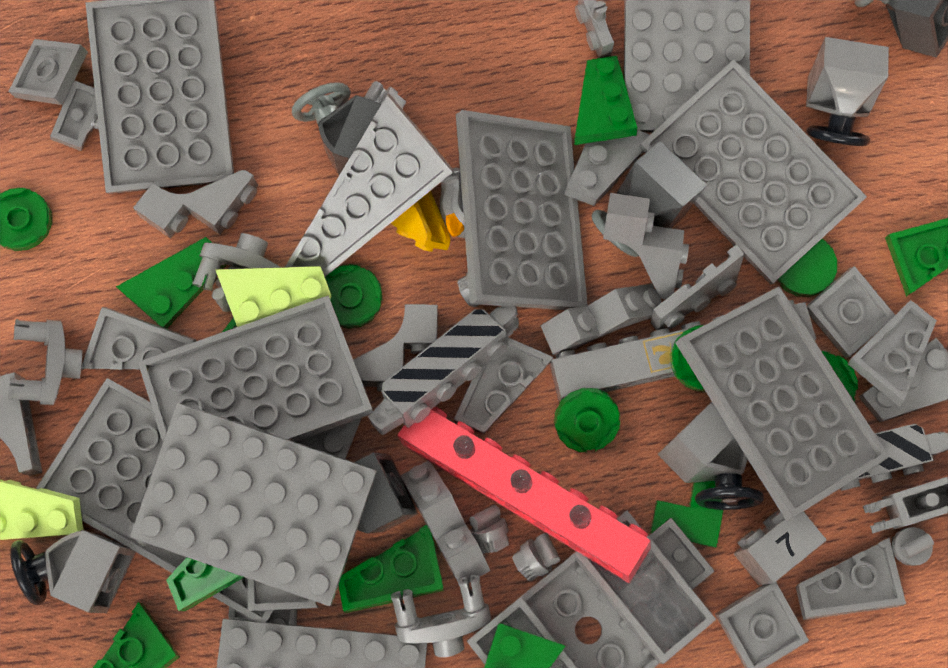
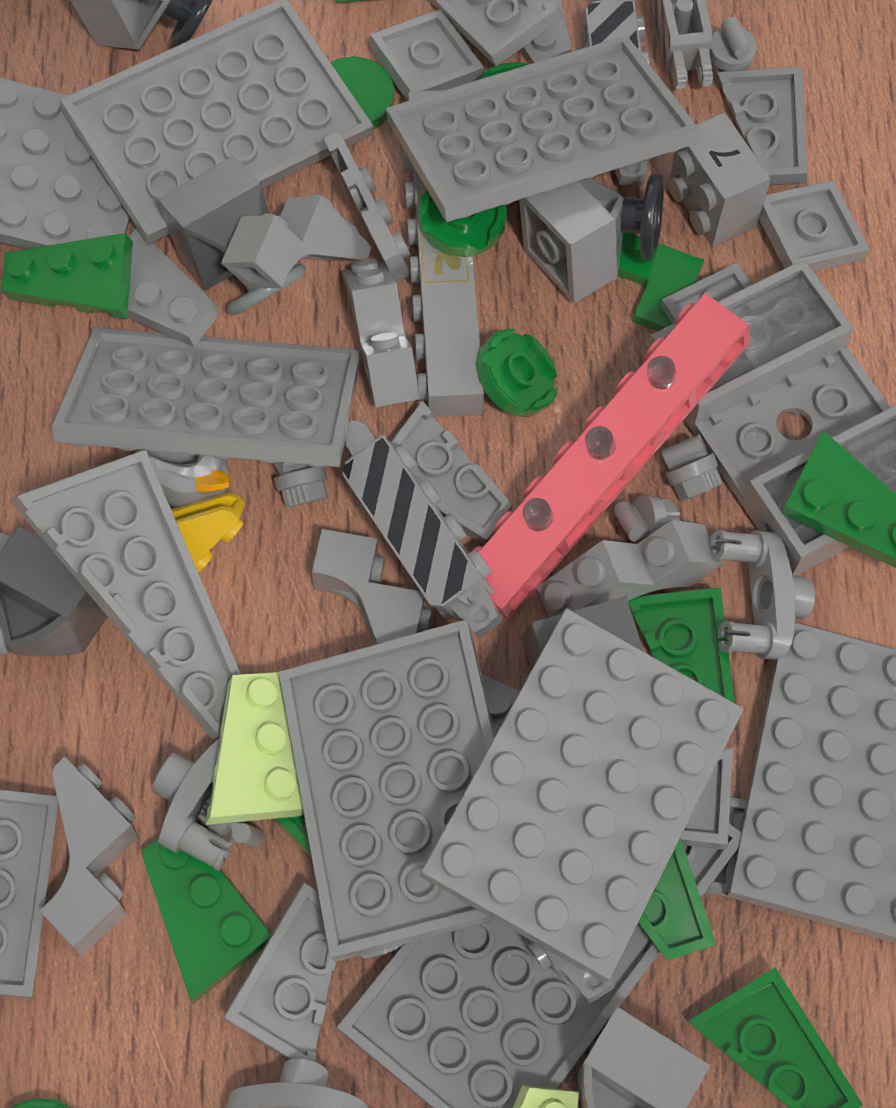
camera: 80 degrees left, 10 degrees down
(354, 295) = (276, 644): green tile -> none

